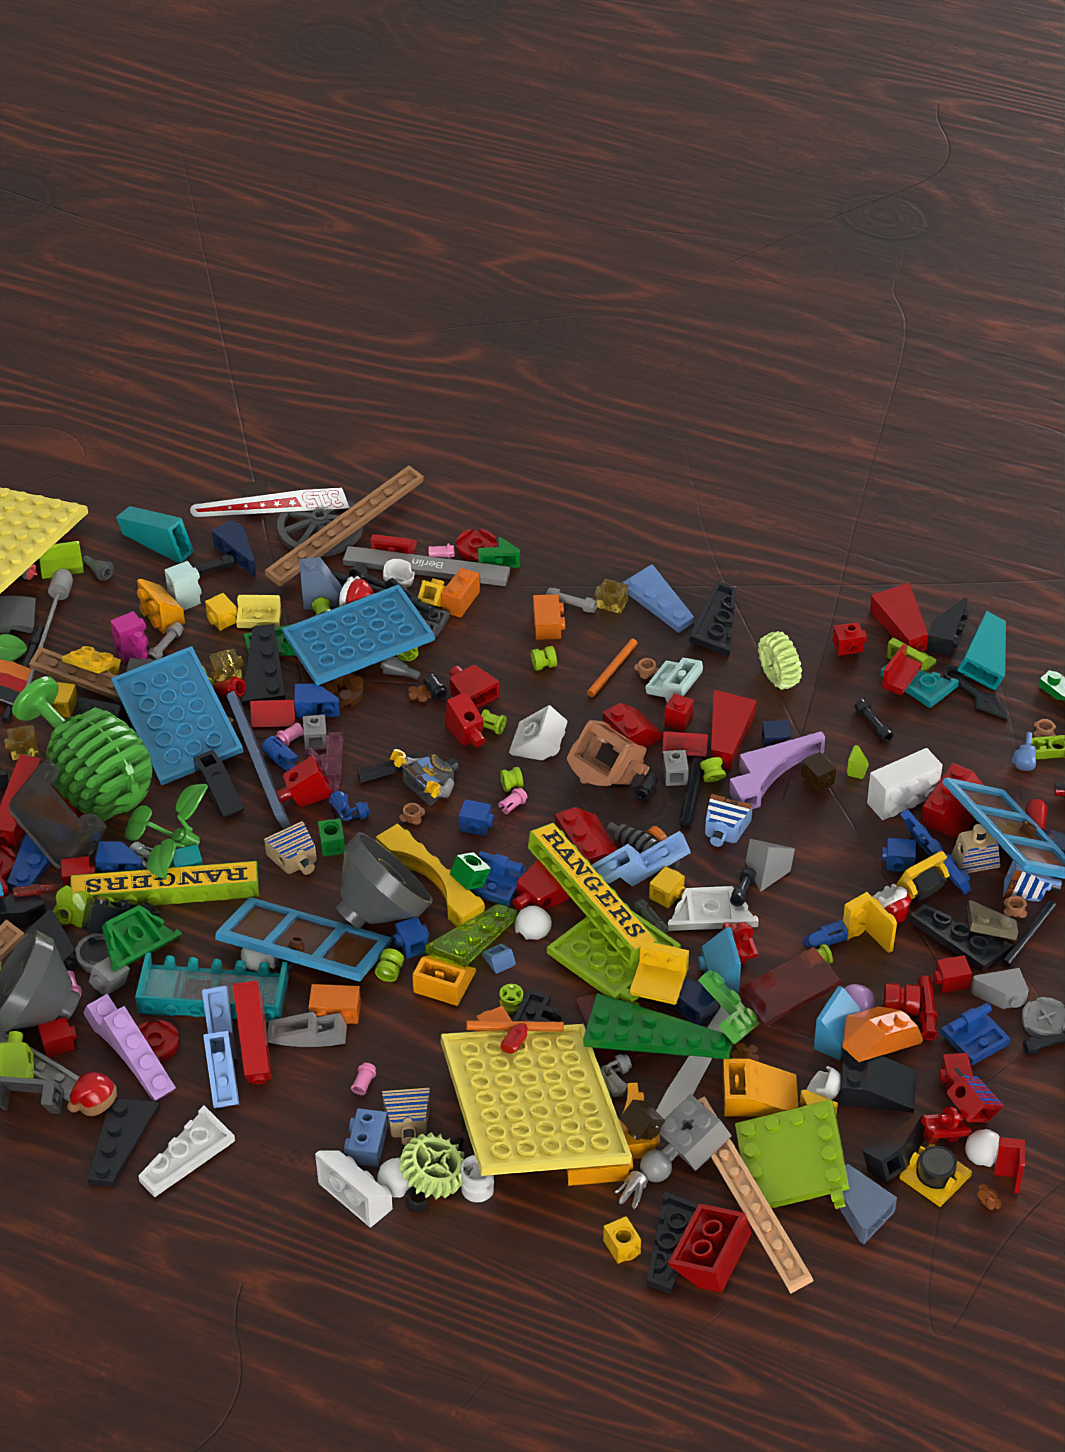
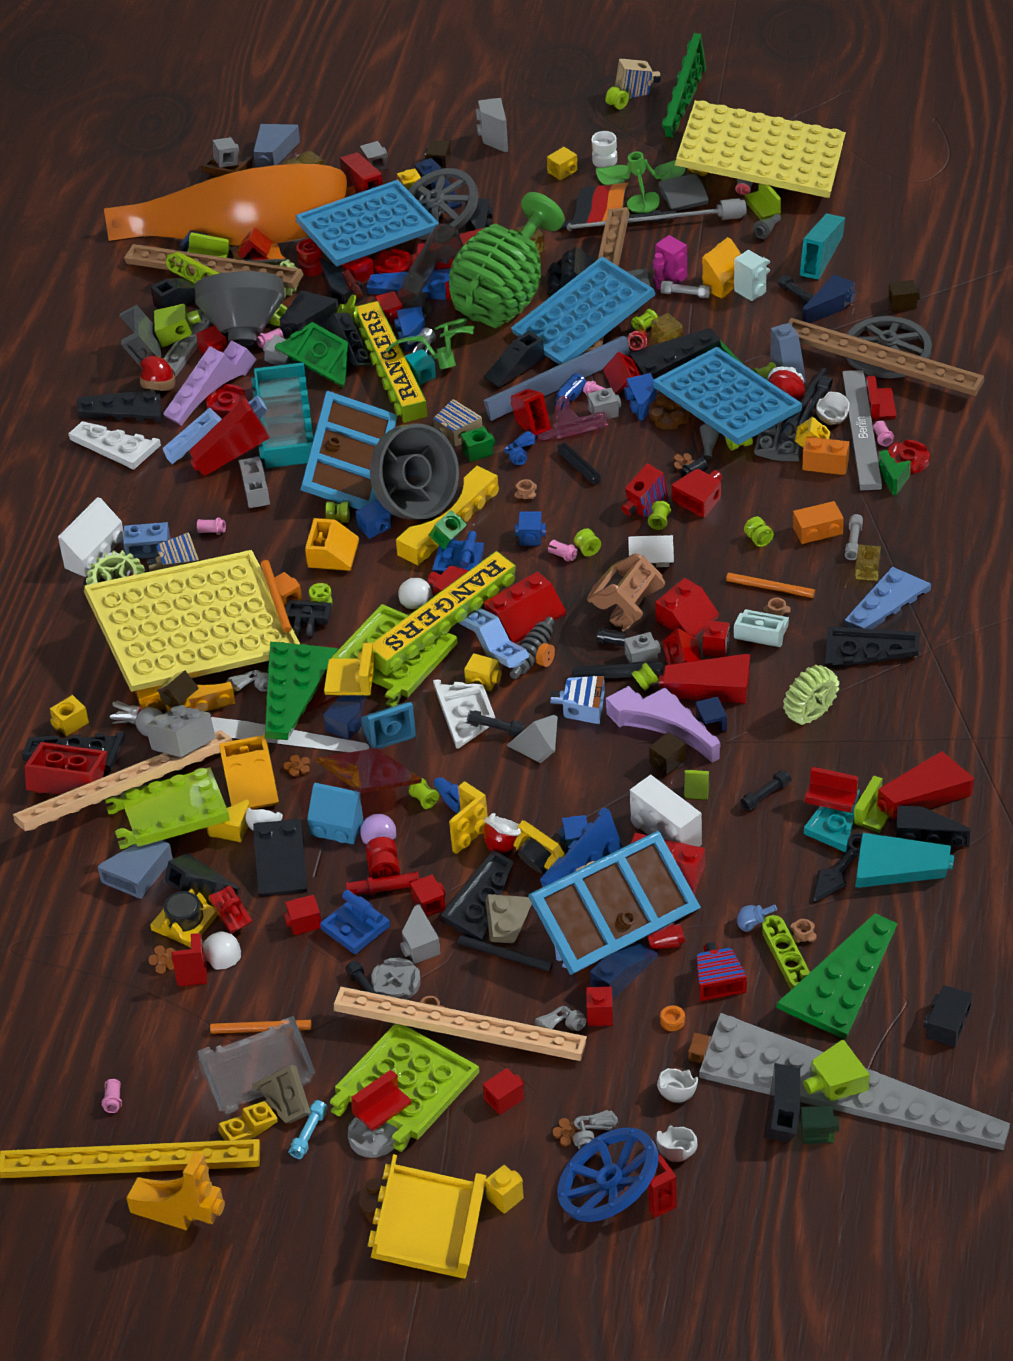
camera: 80 degrees right, 0 degrees up
(66, 699) = (589, 244): yellow brick -> none
(93, 660) = (626, 243): yellow bracket -> none
(221, 611) = (736, 311): yellow brick -> none
(258, 610) = (745, 334): light yellow bracket -> none
(280, 502) = (895, 309): sticker -> none
(336, 999) = (285, 489): orange brick -> none
(427, 775) = (570, 487): torso -> none
(472, 937) = (379, 553): clear neon green wing -> none
(499, 958) = (370, 582): medium blue slope -> none
(514, 1038) = (258, 596): red piece -> none
(649, 915) = (445, 670): dark grey axle -> none
(741, 1019) = (336, 737): bright green plate -> none
(743, 939) = (424, 731): red hips -> none
(848, 638) = (873, 747): red brick -> none
(879, 1033) = (326, 841): orange wedge -> none
(973, 1097) = (262, 921): red torso -> none
(1015, 907) = (535, 936): nougat plate -> none

